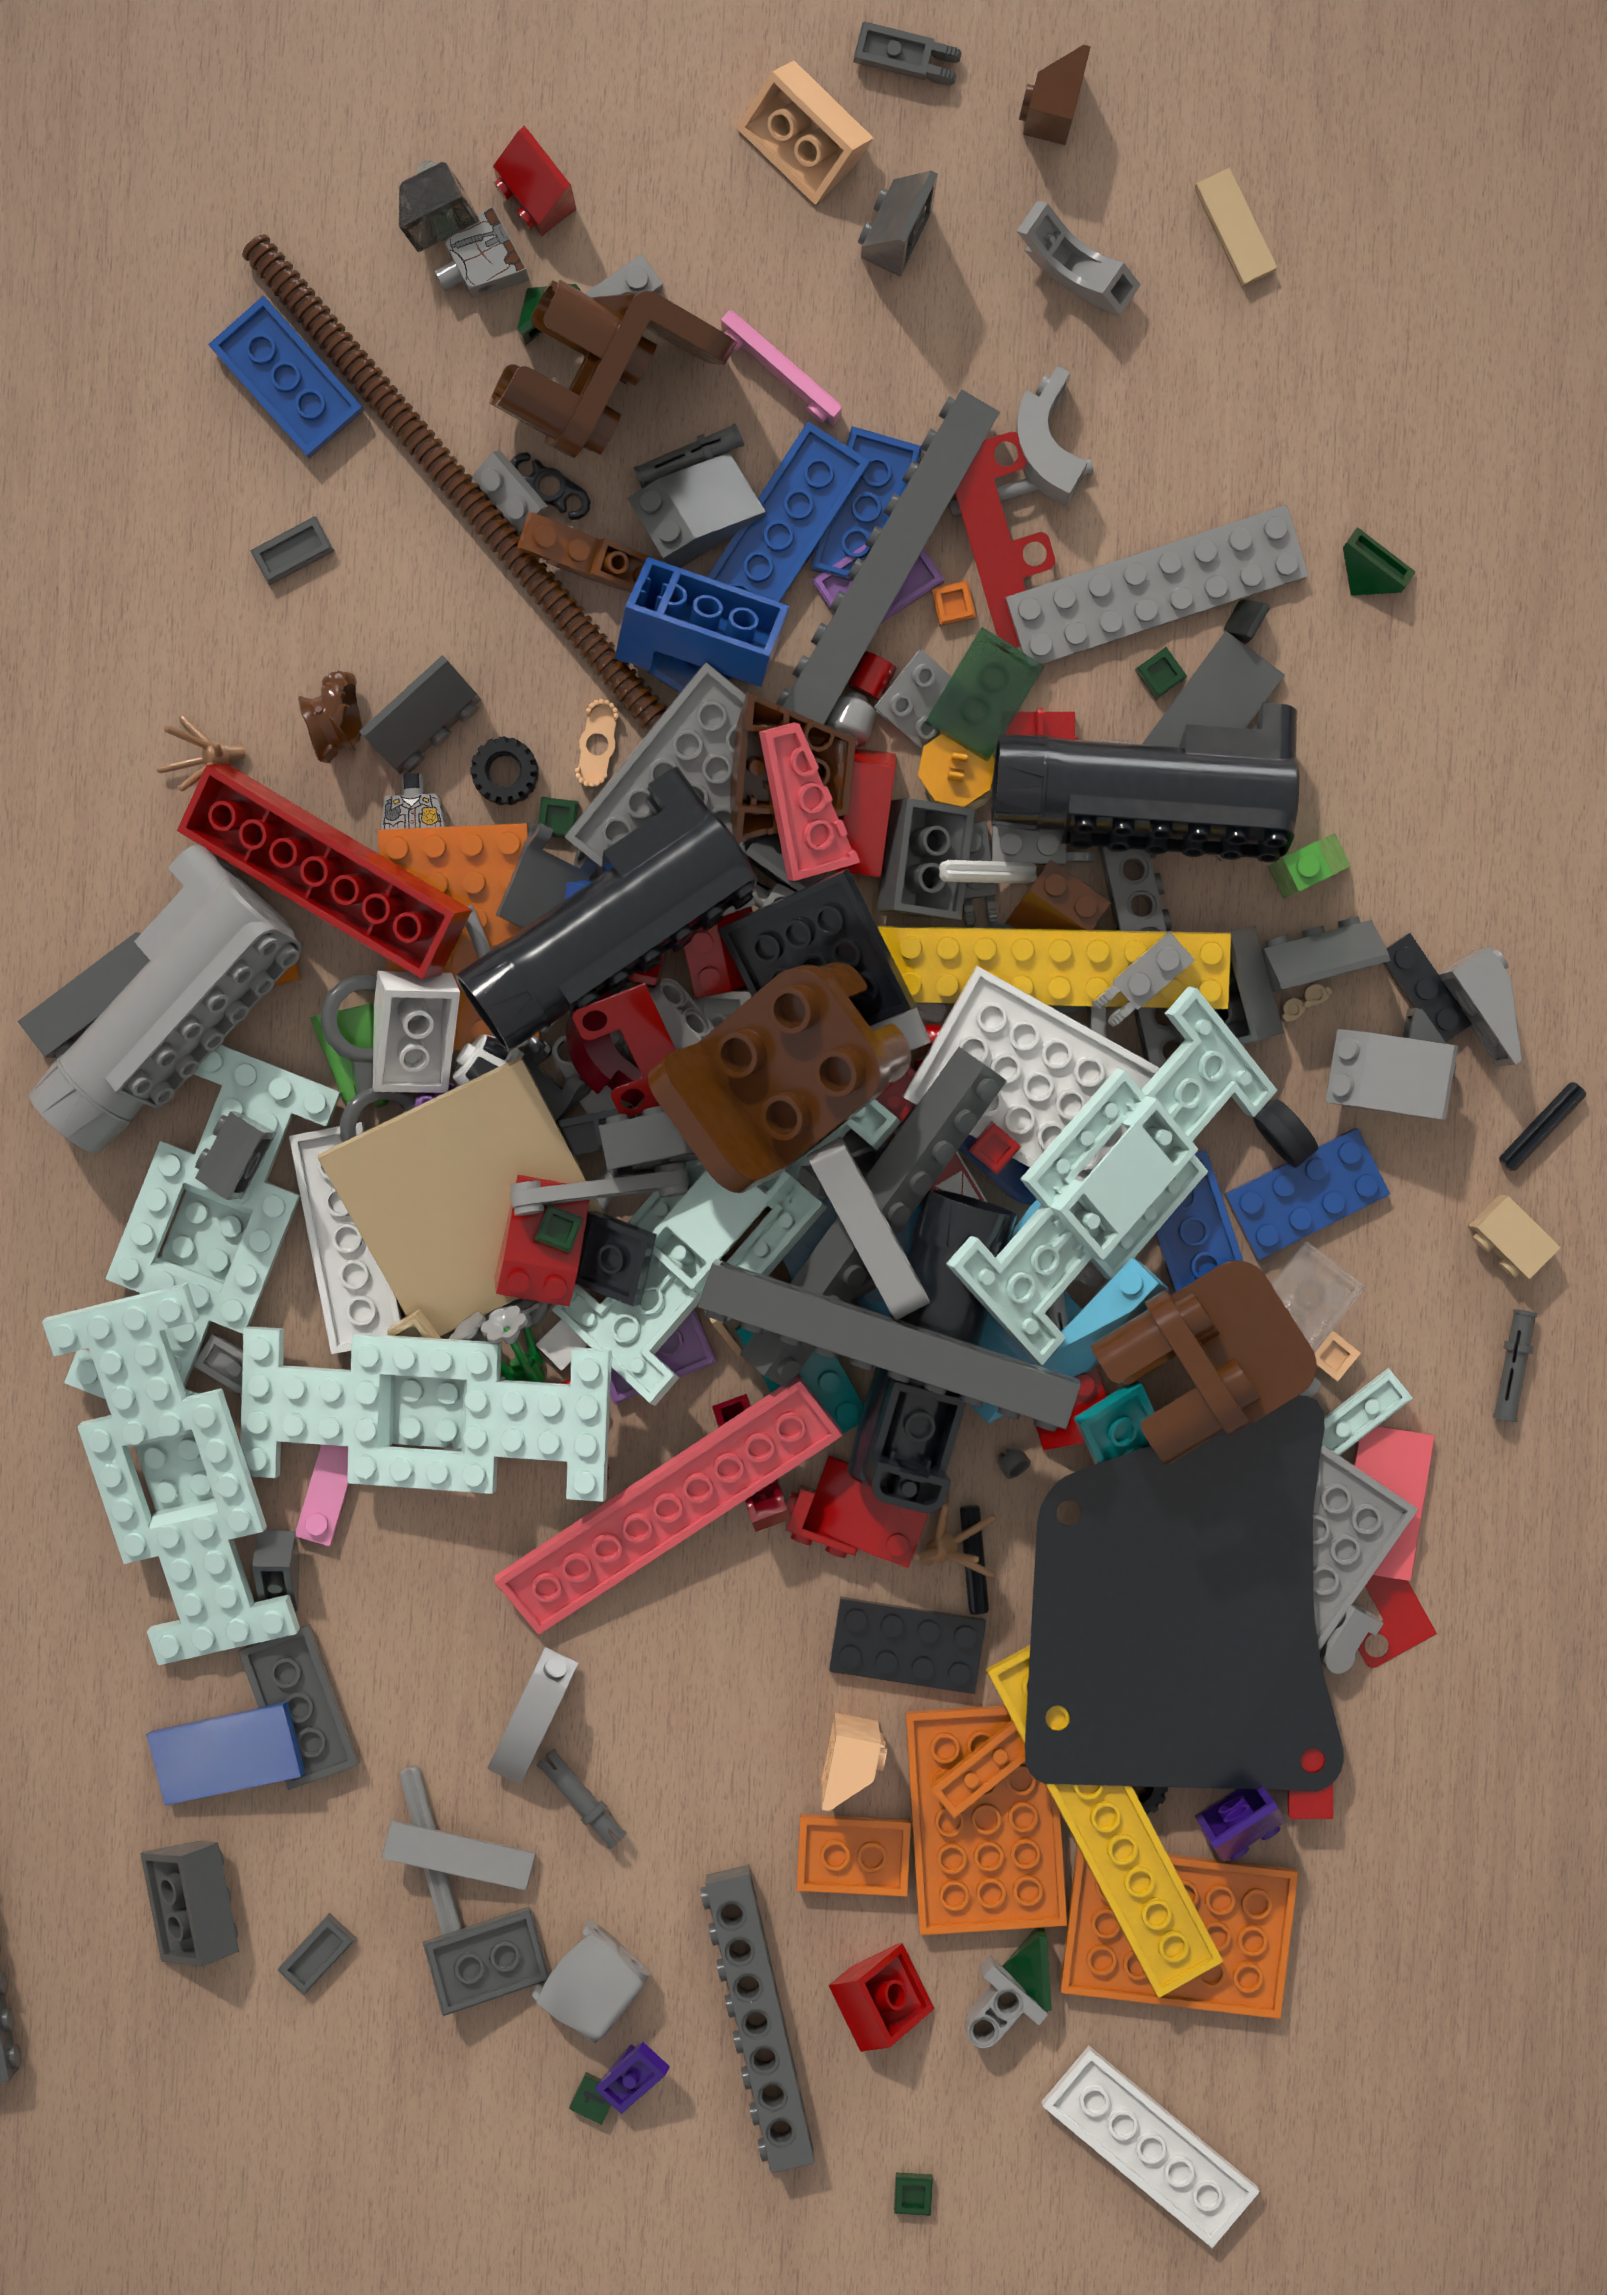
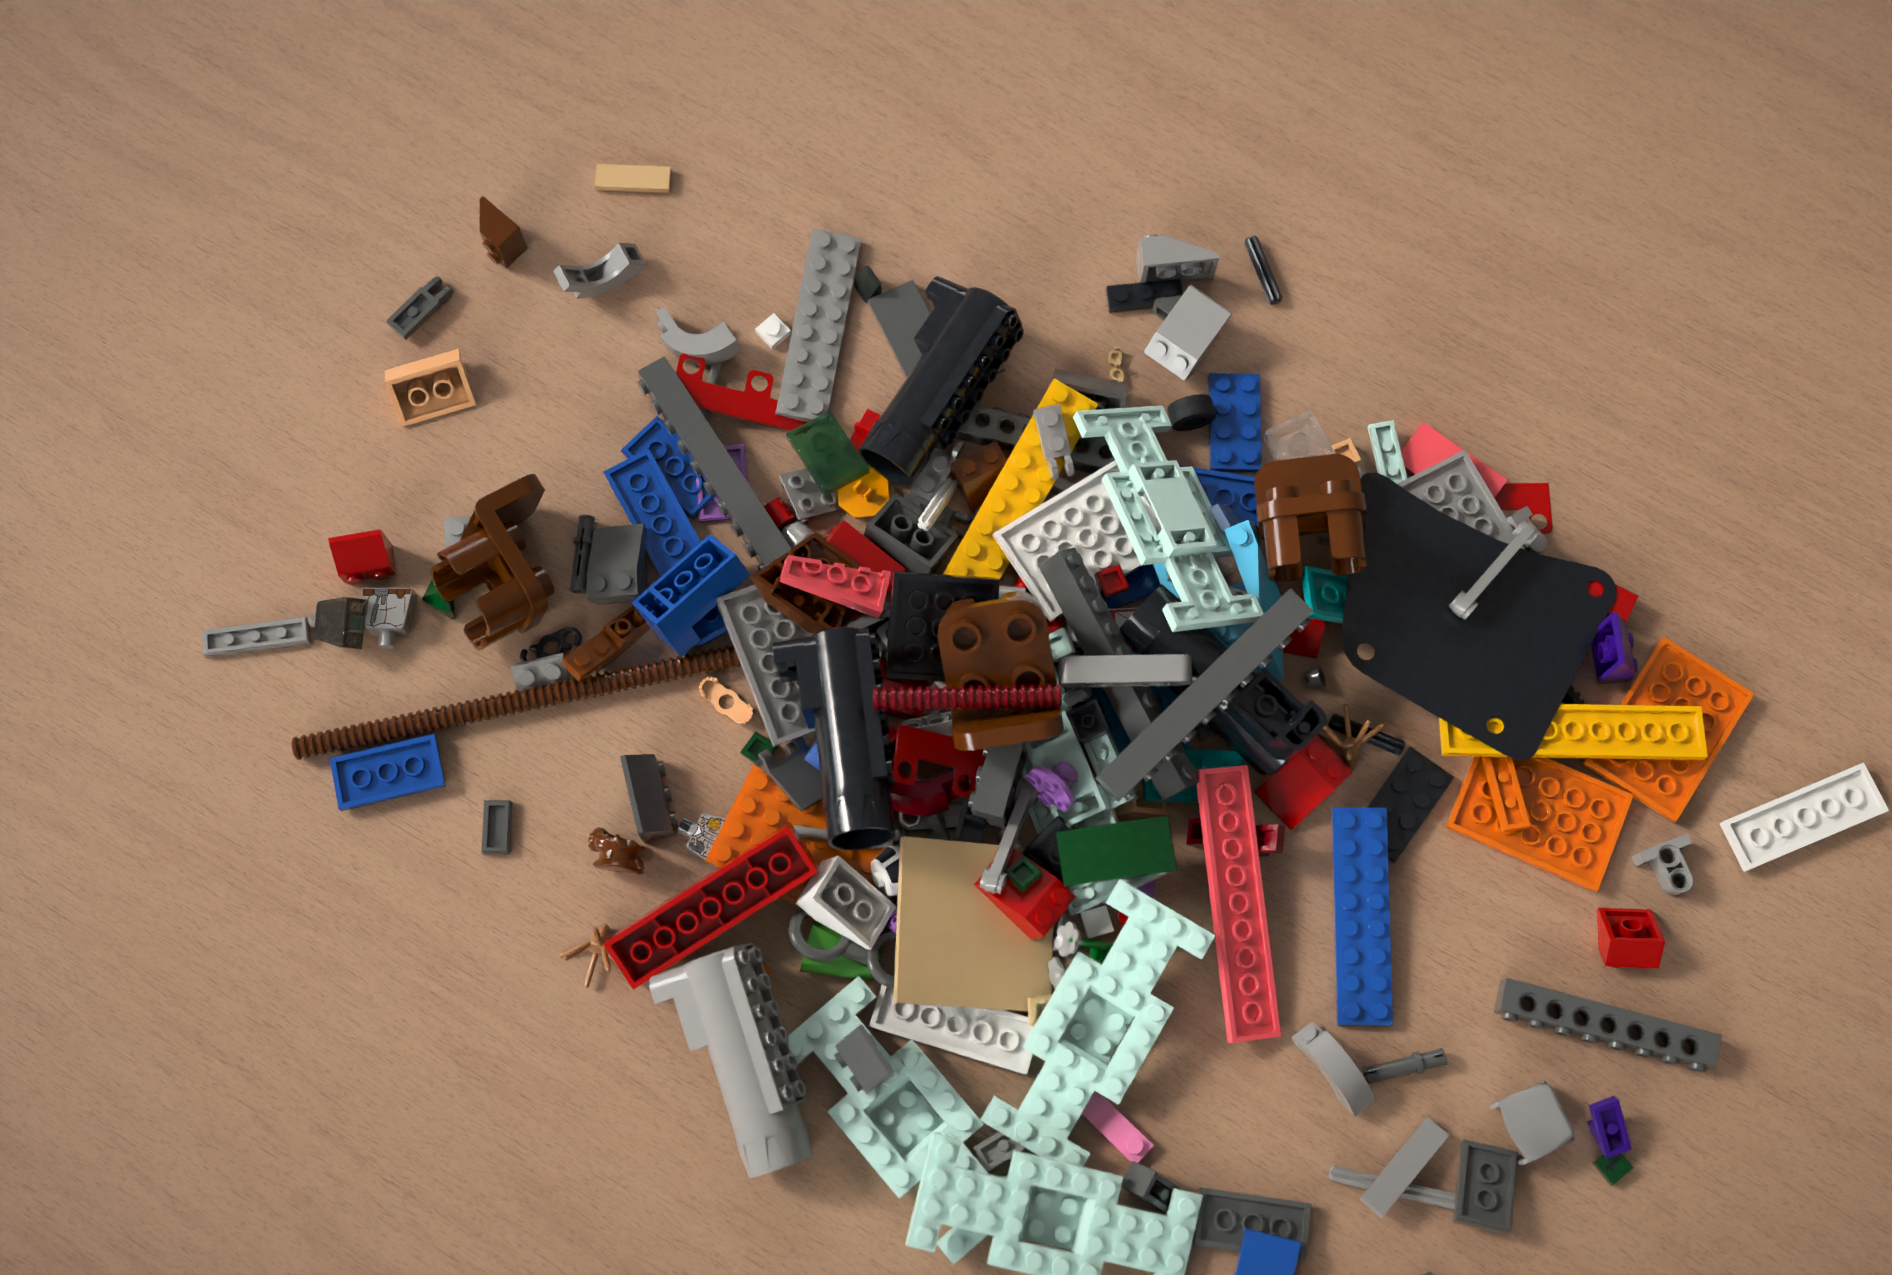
camera: 60 degrees left, 15 degrees down
(73, 1008) = (707, 1110): dark grey brick -> none
(368, 110) = (256, 637): none -> light grey tile
(504, 747) = (703, 751): black tyre -> none
(643, 1330) = (1116, 851): none -> dark green slope
(689, 1212) = (1054, 784): none -> medium lavender plate
(720, 1051) = (967, 697): none -> dark red piece
(737, 1662) = (1361, 916): none -> blue plate
(788, 1214) = (1089, 721): none -> black piece
(798, 1508) = (1296, 832): red bracket -> none
(819, 402) = (594, 460): bright pink plate -> none
(851, 1759) = (1461, 871): light nougat slope -> none
(853, 1855) = (1524, 907): orange plate -> none
(899, 221) = (516, 356): dark grey slope -> none
(913, 2194) = (1770, 986): dark green tile -> none
(953, 603) = (761, 446): orange tile -> none
(1031, 1967) = (1650, 830): dark green slope -> none
(1118, 531) = (773, 331): none -> white plate
(1157, 1248) = (1224, 516): none -> sand blue tile
(1161, 673) = (871, 349): dark green tile -> none
(1309, 865) = (1035, 323): bright green slope -> none
(1323, 953) = (1094, 336): dark grey slope -> none
(1334, 1640) = (1466, 603): none -> light grey piece
(1372, 567) = (877, 201): dark green slope -> none
(1513, 1238) = (1322, 317): tan brick -> none
(1515, 1364) = (1378, 336): dark grey pin -> none

